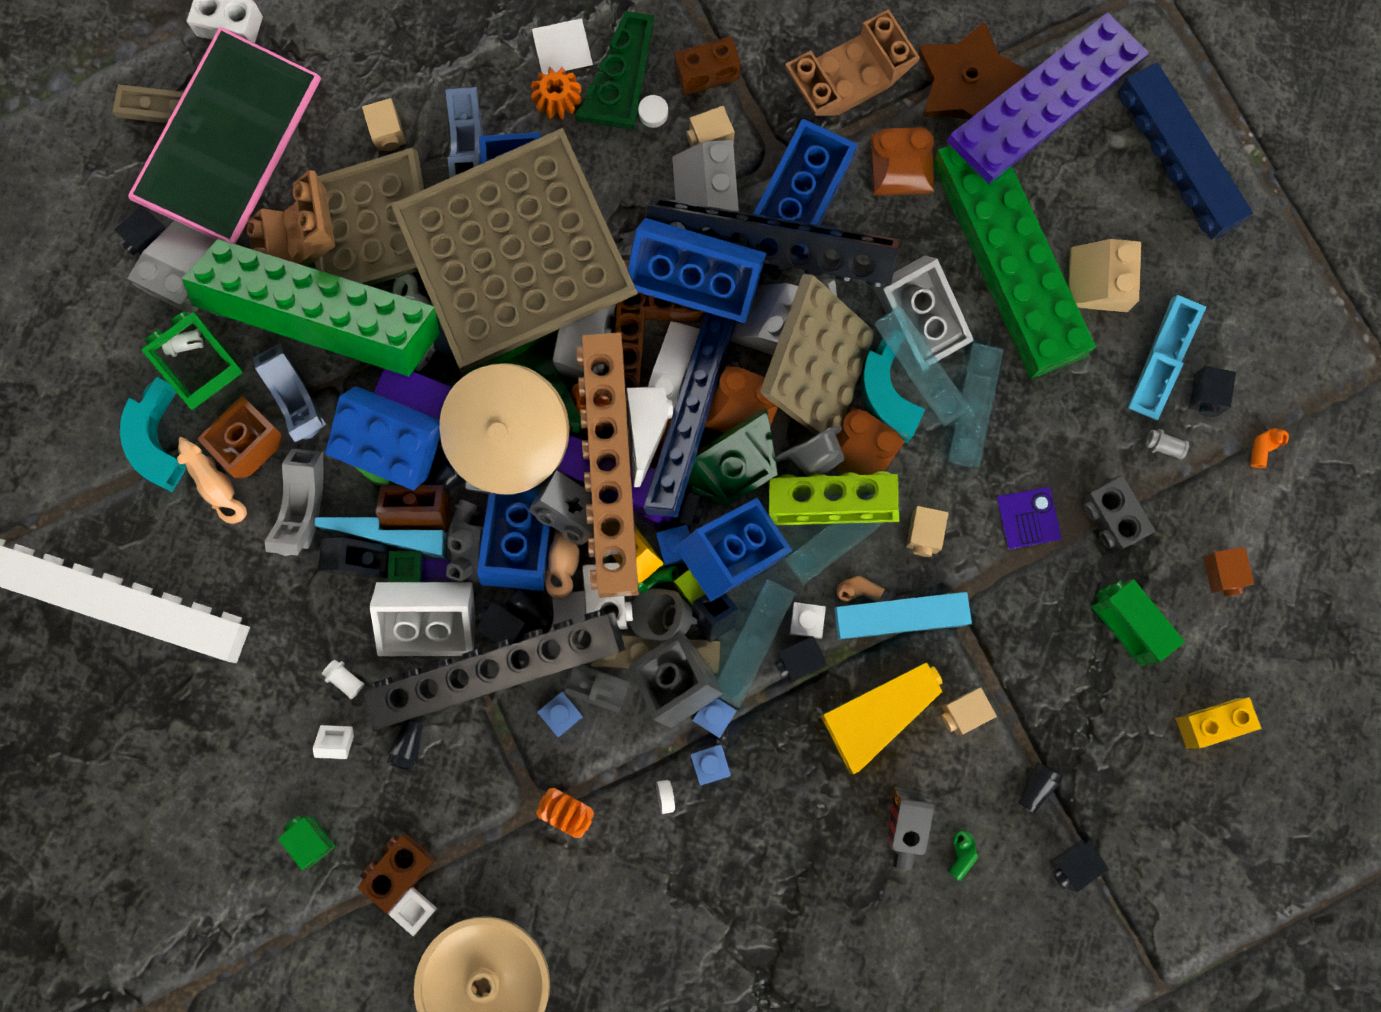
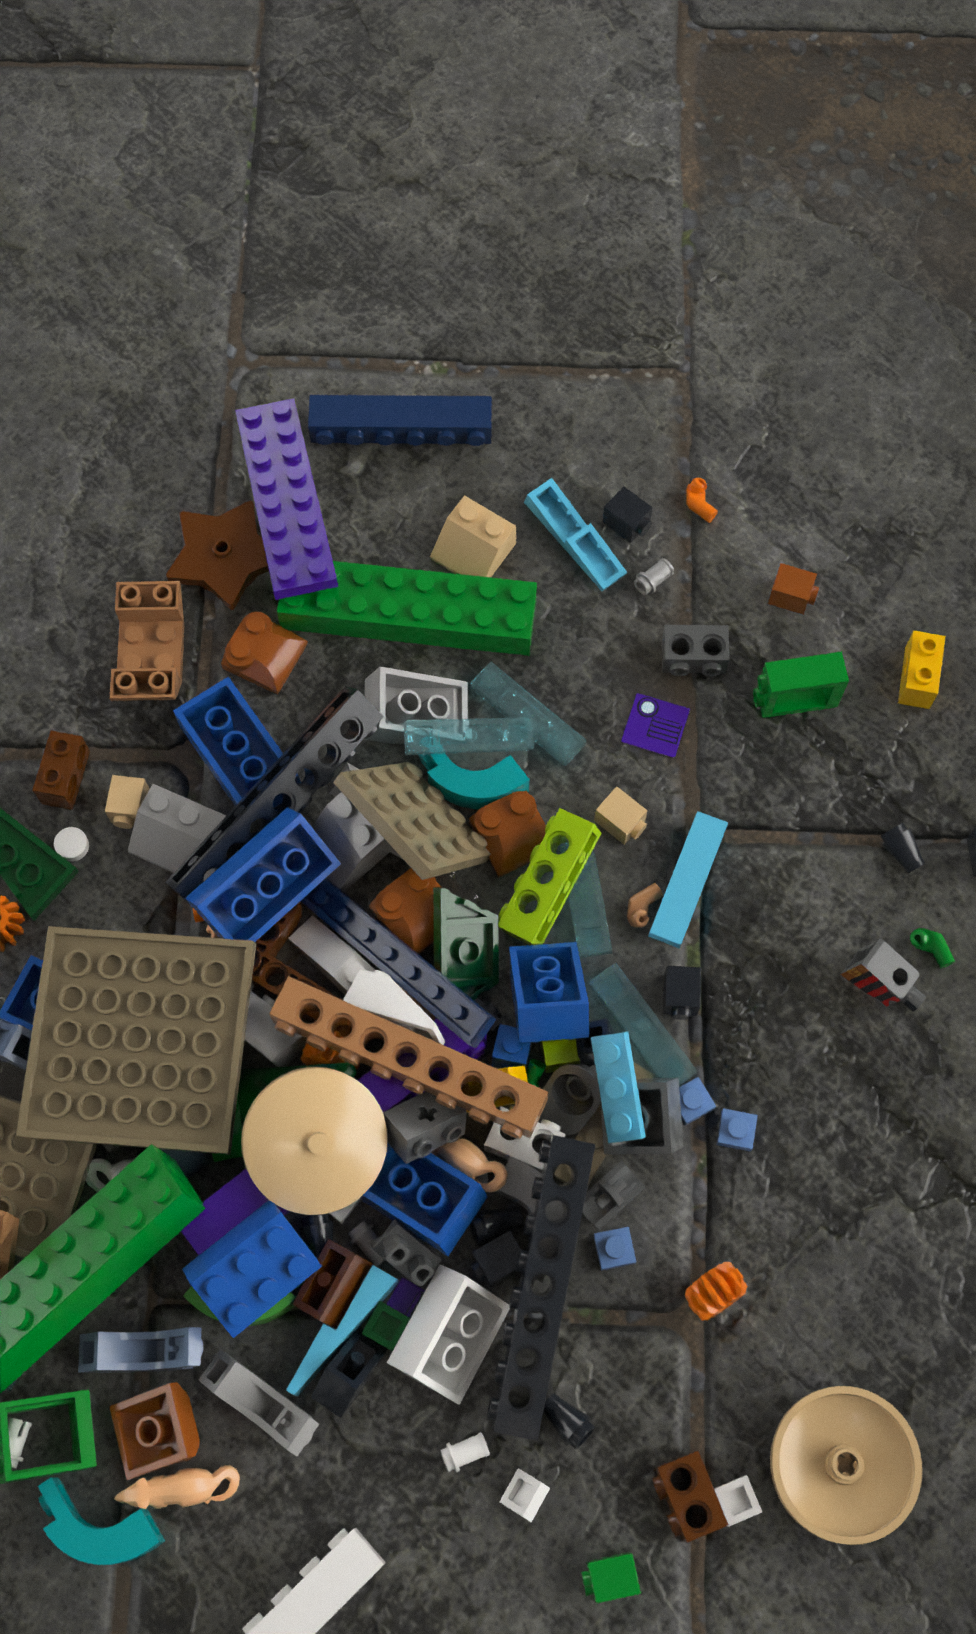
camera: 60 degrees left, 10 degrees down
(665, 796) = (746, 1187): white tile -> none
(683, 647) = (618, 1087): none -> medium azure plate
(807, 620) = (646, 967): white plate -> none
(817, 454) = (501, 870): dark grey piece -> none
(877, 717) = (770, 953): yellow slope -> none
(967, 712) = (806, 870): tan brick -> none

